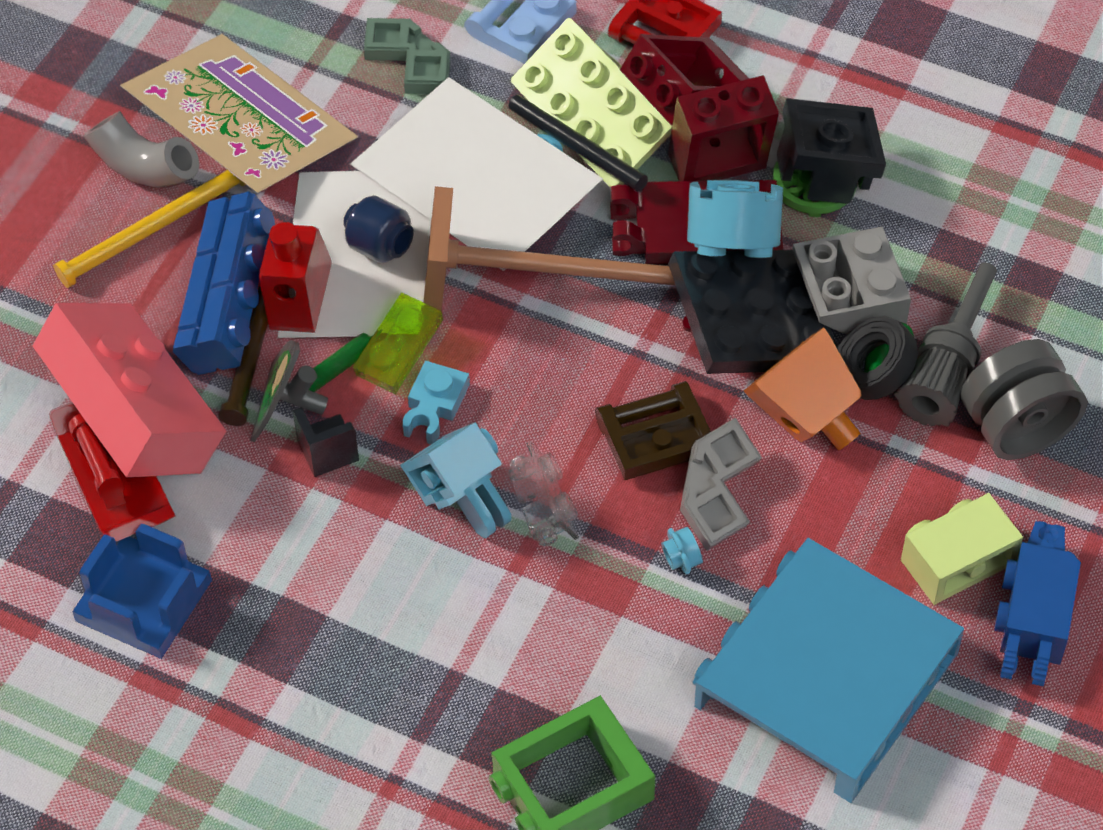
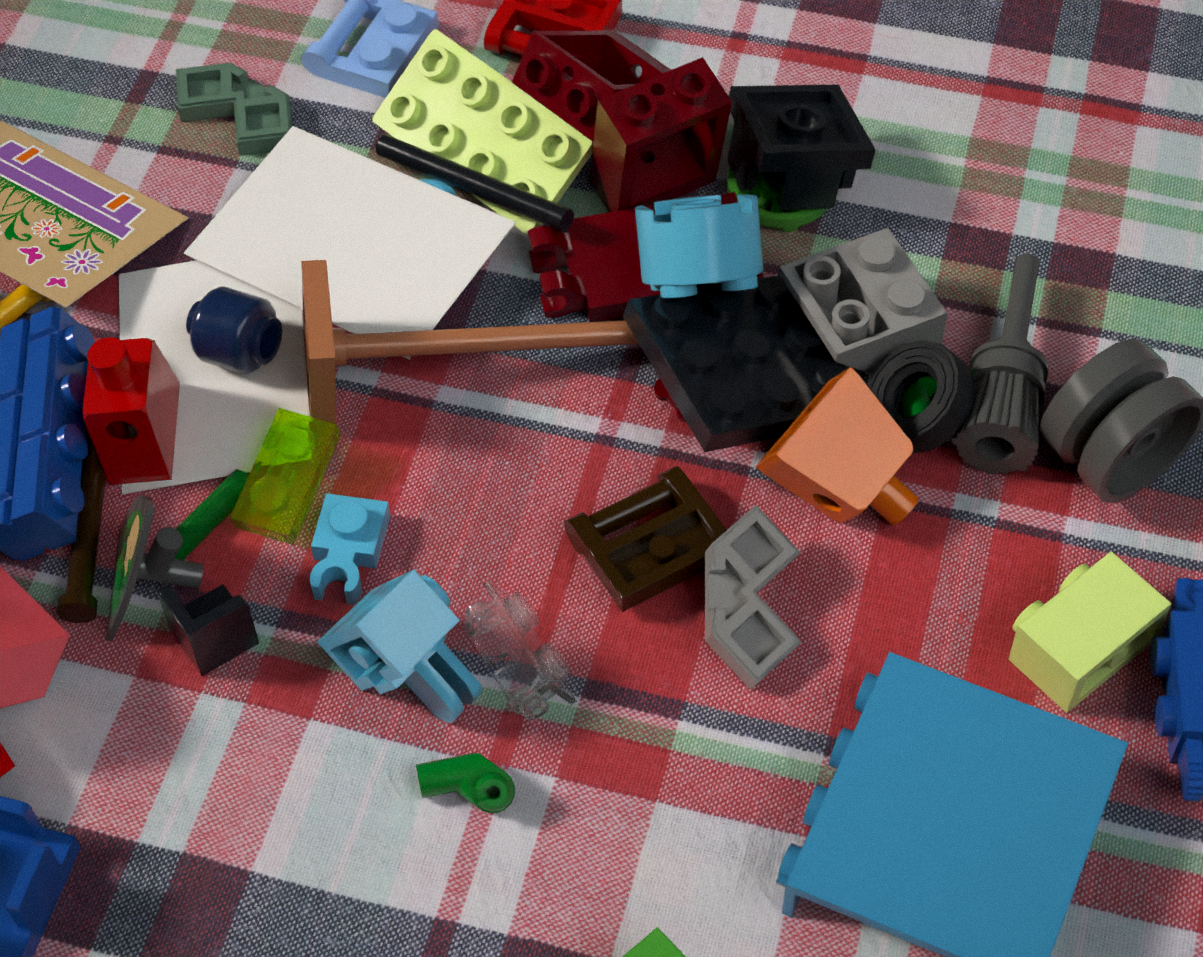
camera: 10 degrees left, 0 degrees up
(492, 577) = (469, 776): none -> green arm
(682, 550) = (720, 695): medium azure plate -> none

